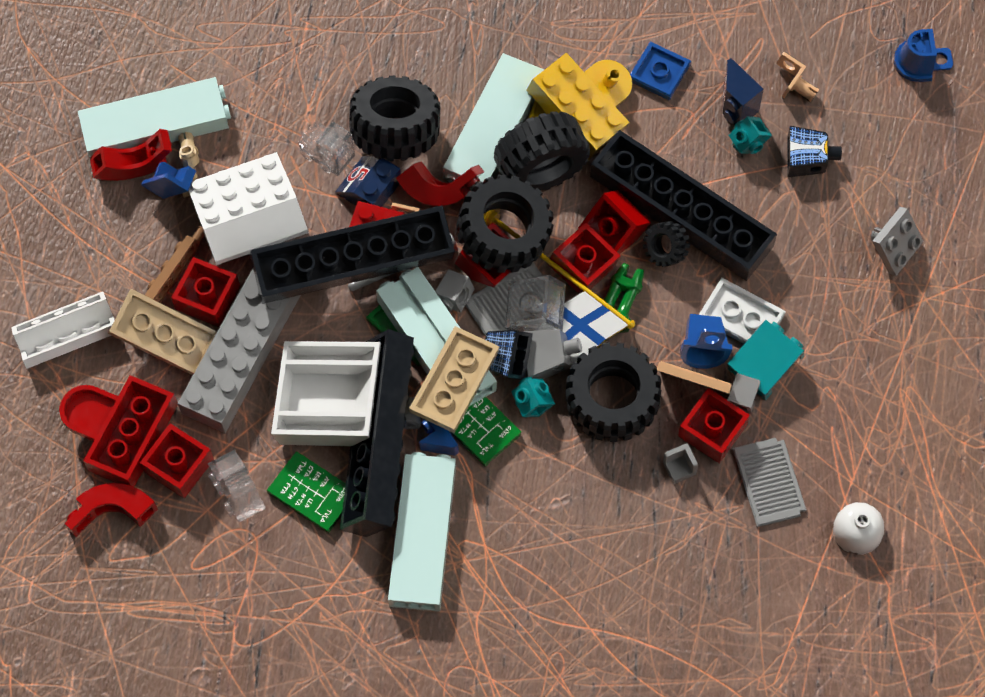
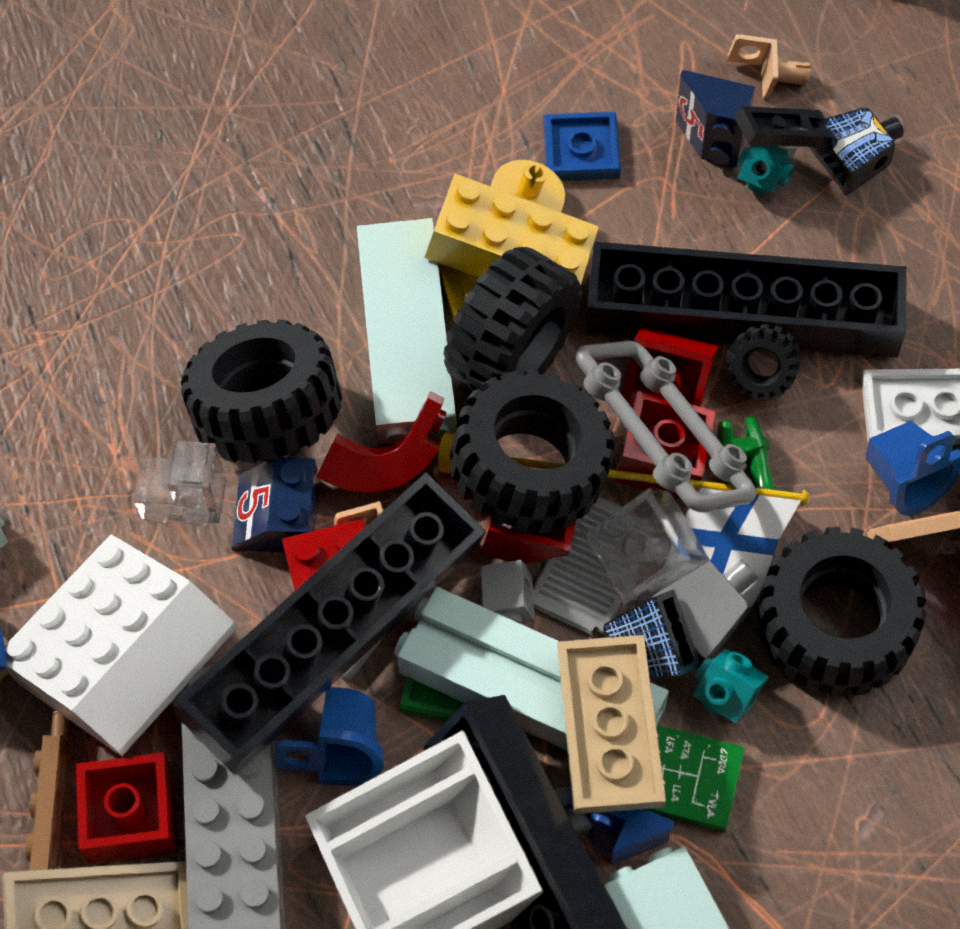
camera: 30 degrees left, 5 degrees down
(325, 317) = (346, 744): none -> blue container
(564, 271) = (674, 470): none -> light grey bar
(765, 121) = (786, 127): none -> black plate

